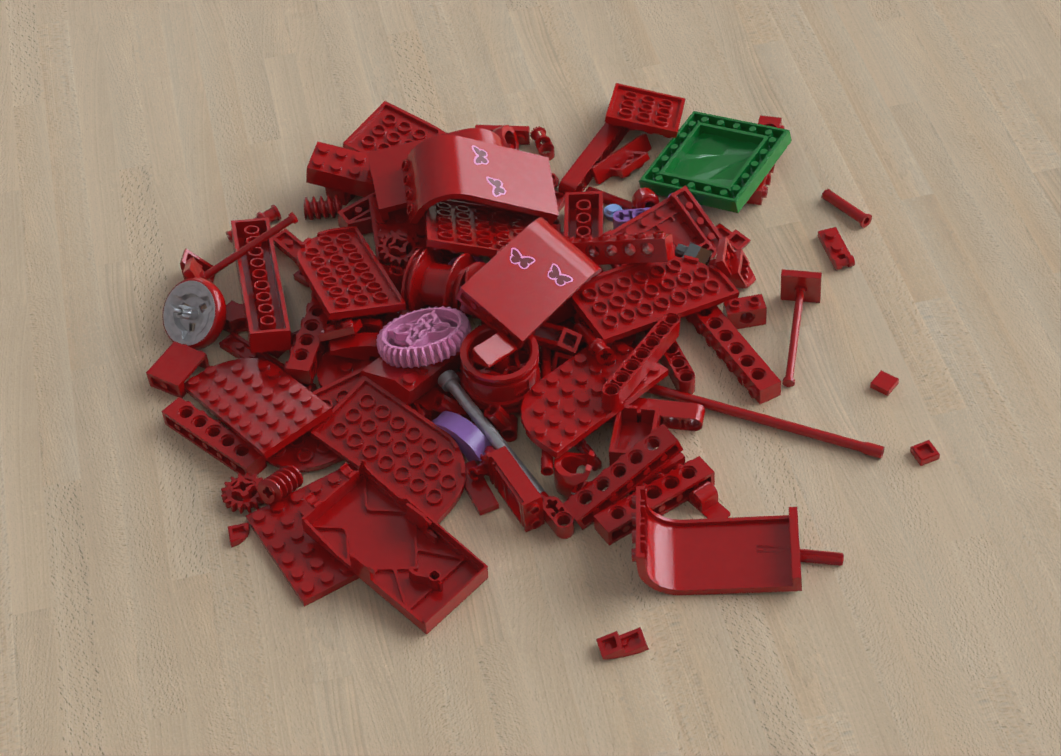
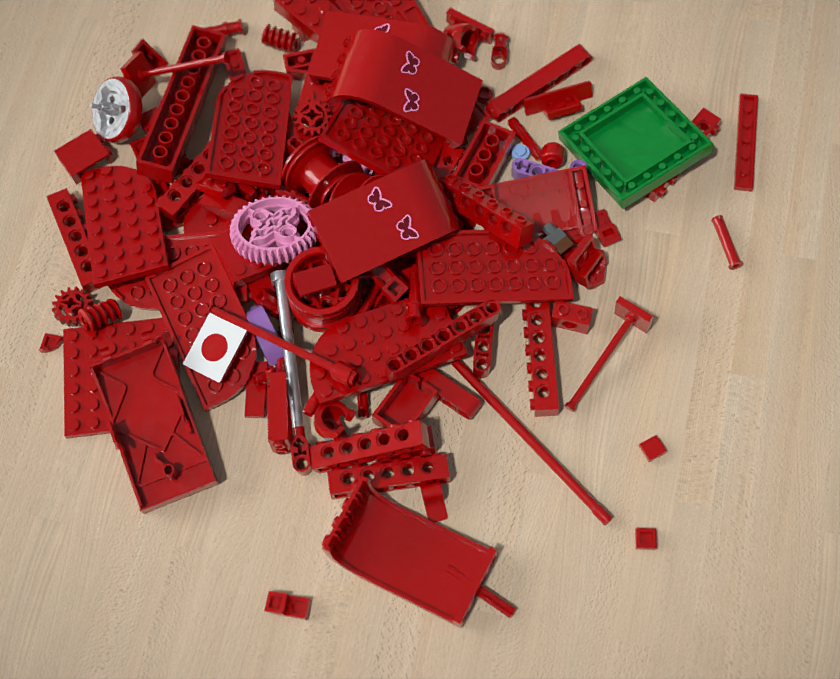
camera: 25 degrees right, 20 degrees up
(423, 445) = (223, 336): none -> flag
(505, 423) = (304, 335): red piece -> none
(645, 110) = (603, 57): red plate -> none
(813, 132) = (746, 142): none -> red tile
(835, 248) = (692, 282): red plate -> none

